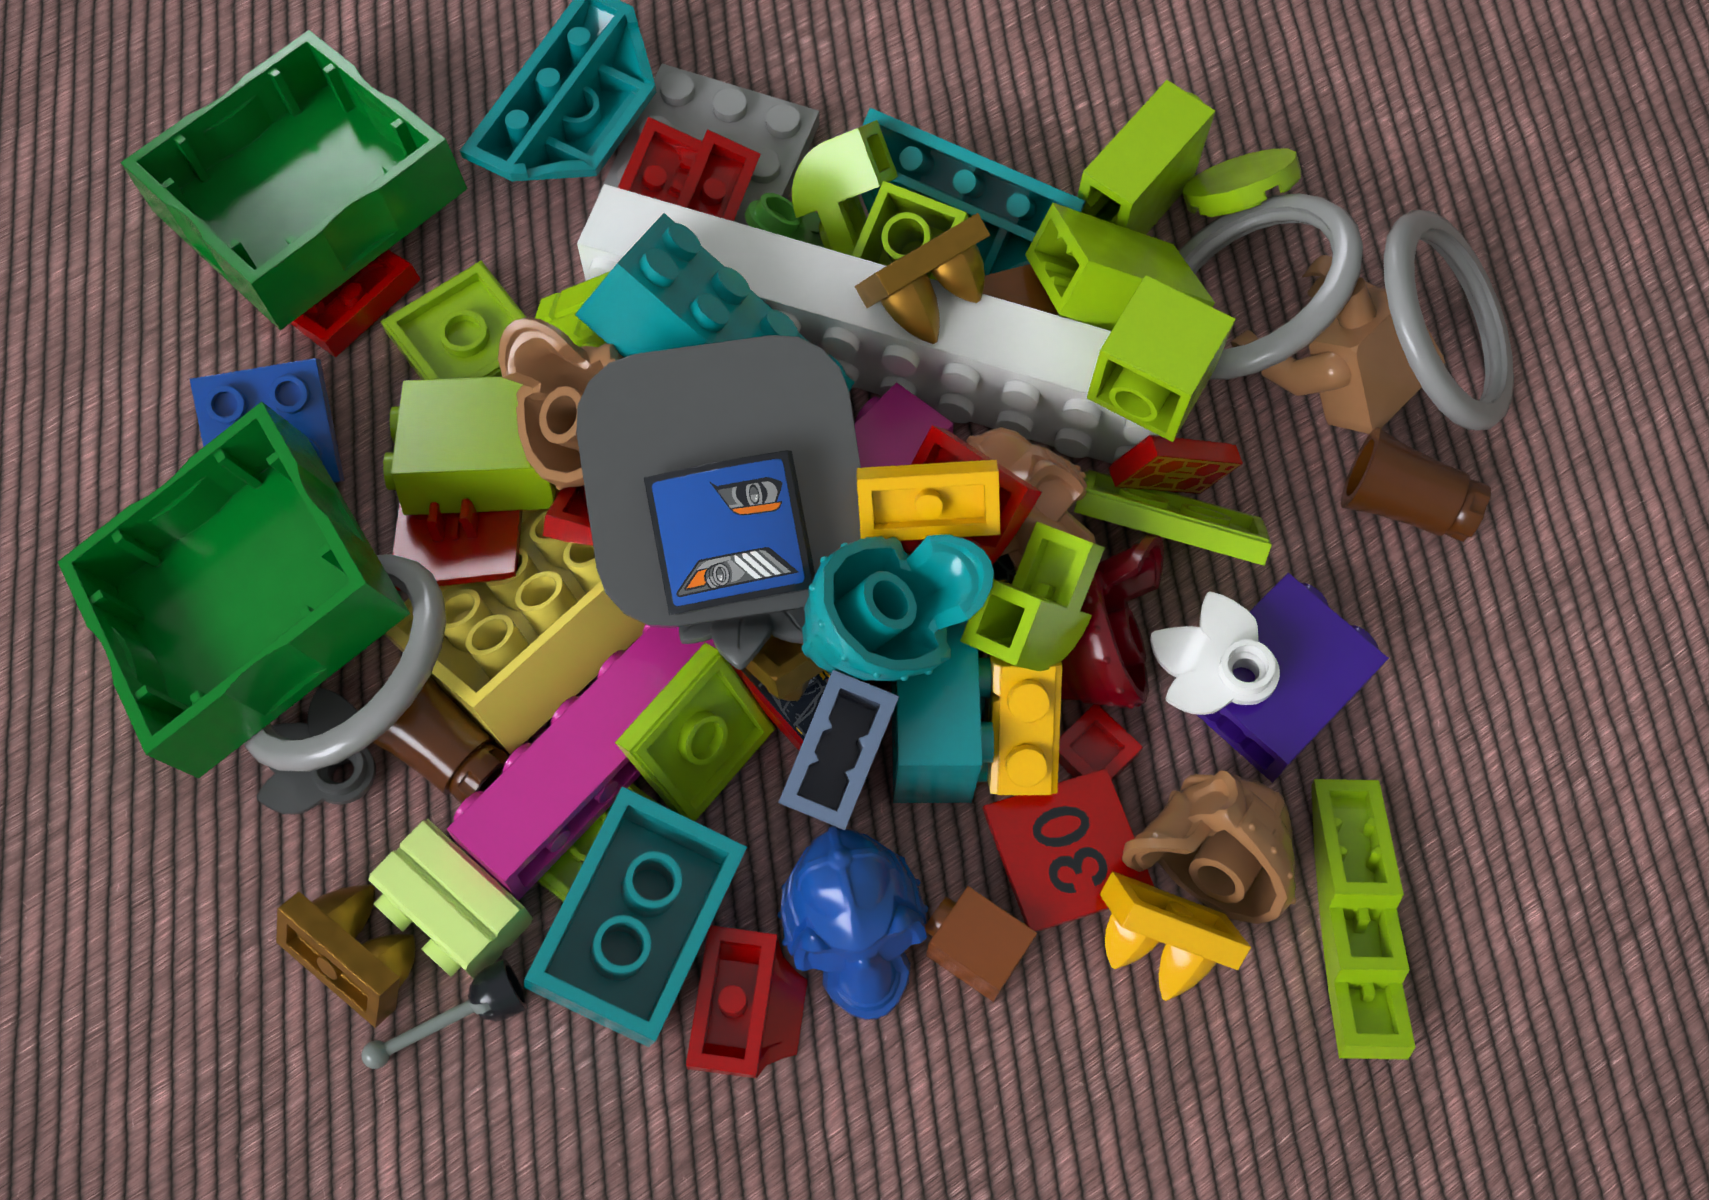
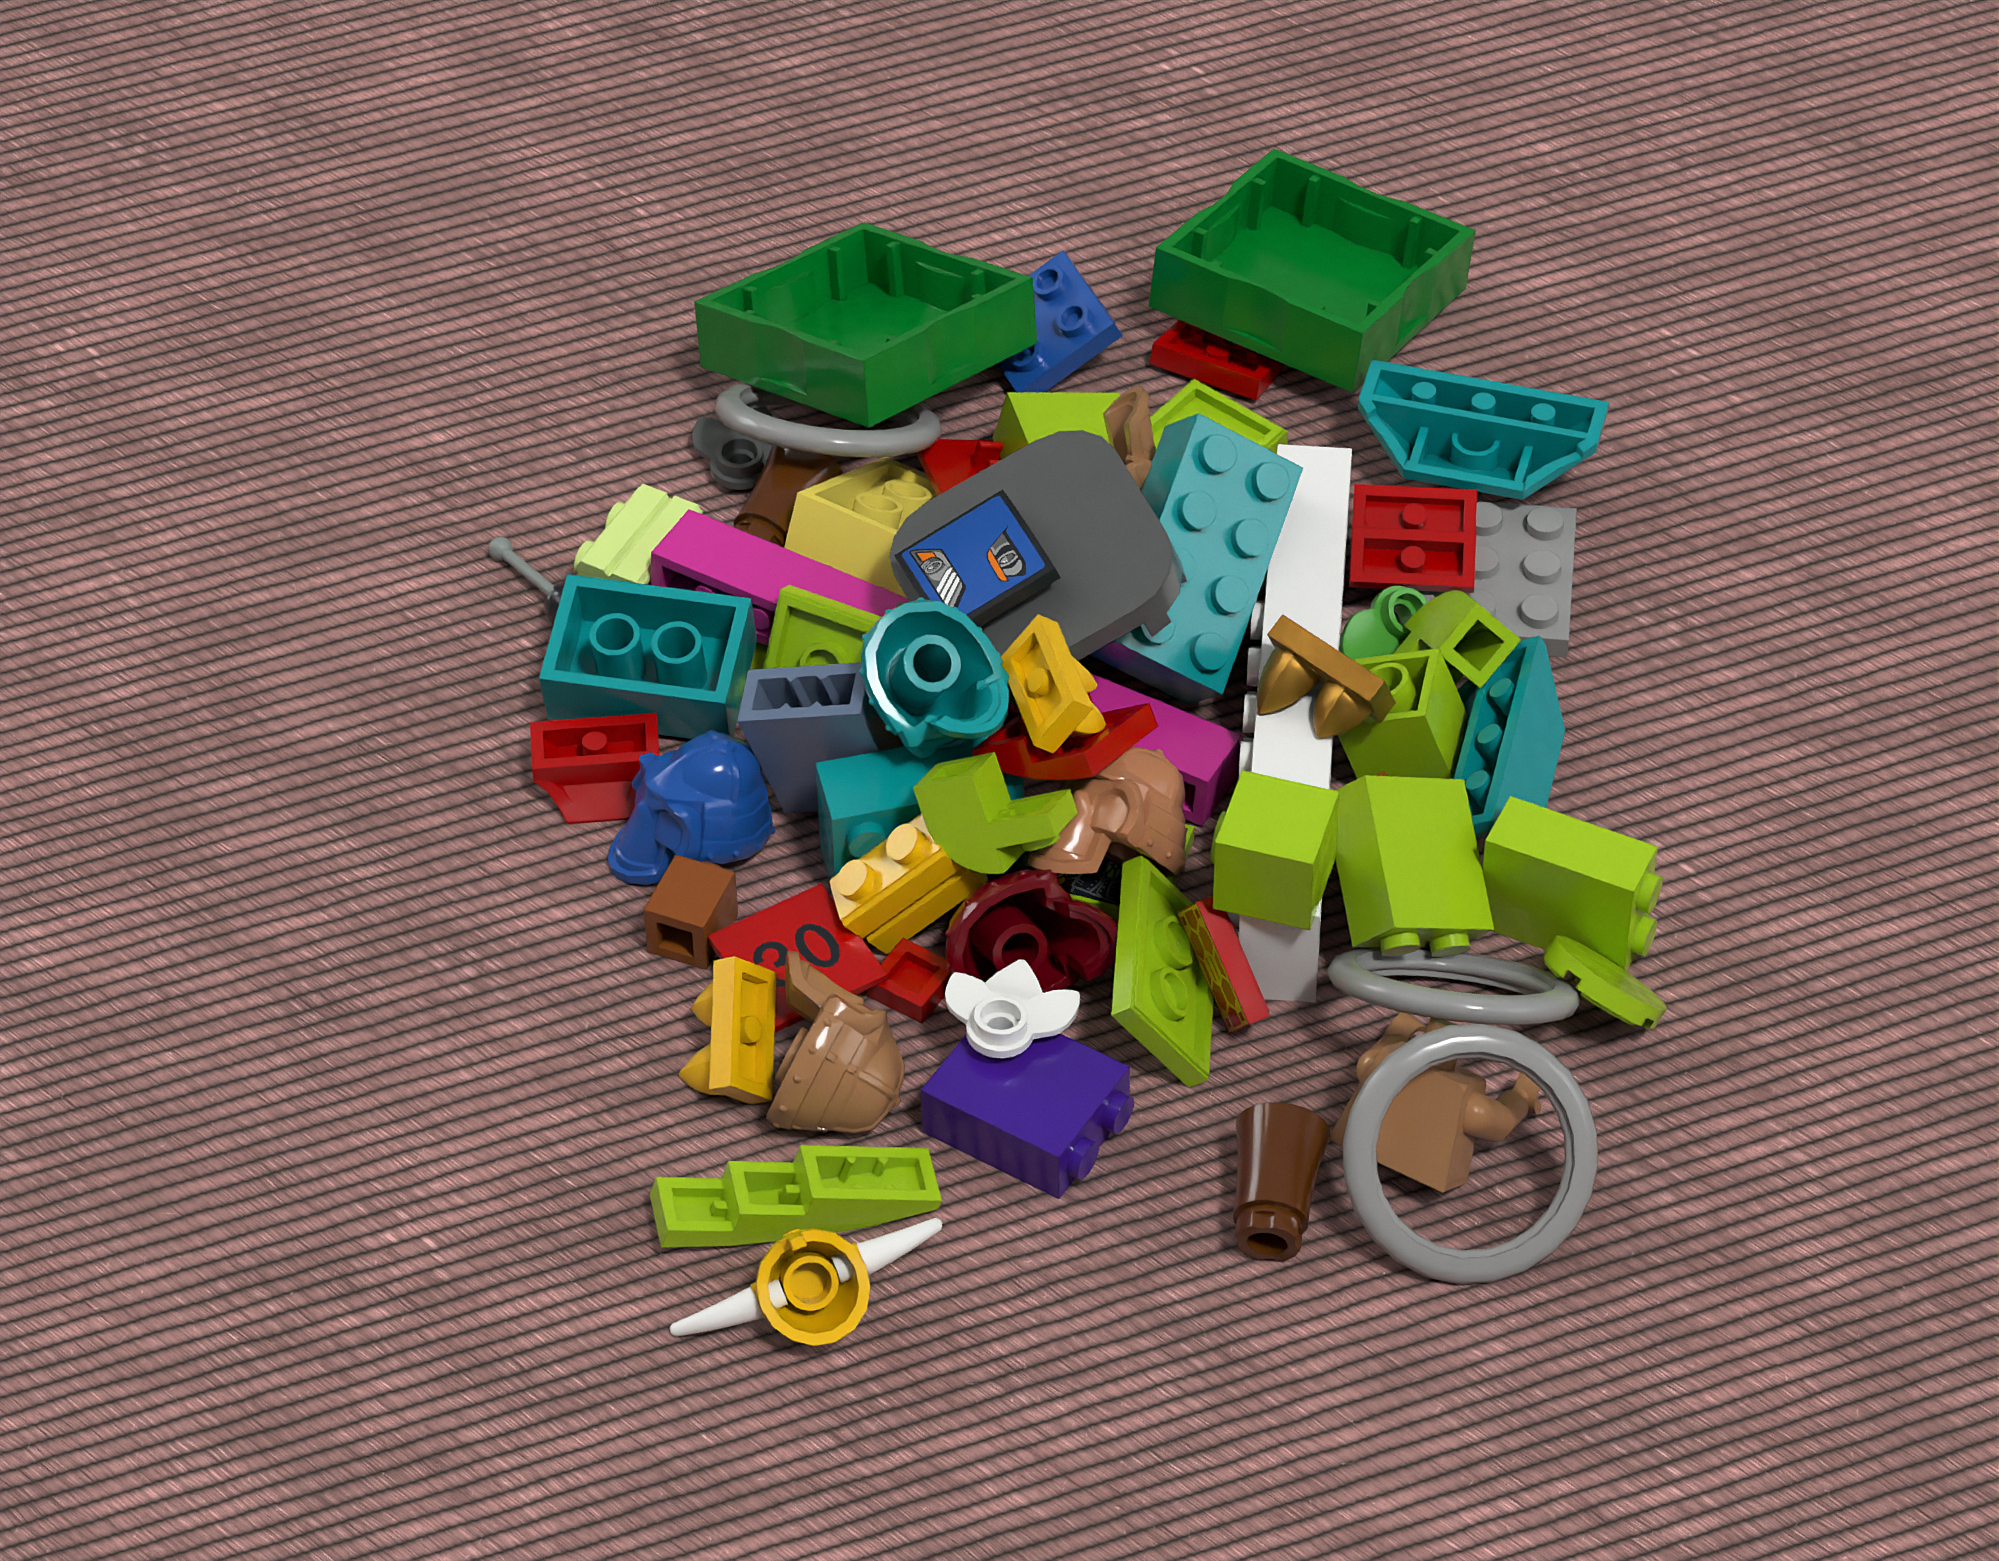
camera: 80 degrees right, 20 degrees down
(324, 942) = (588, 482): pearl gold tile -> none
(1495, 918) = (810, 1284): none -> yellow helmet

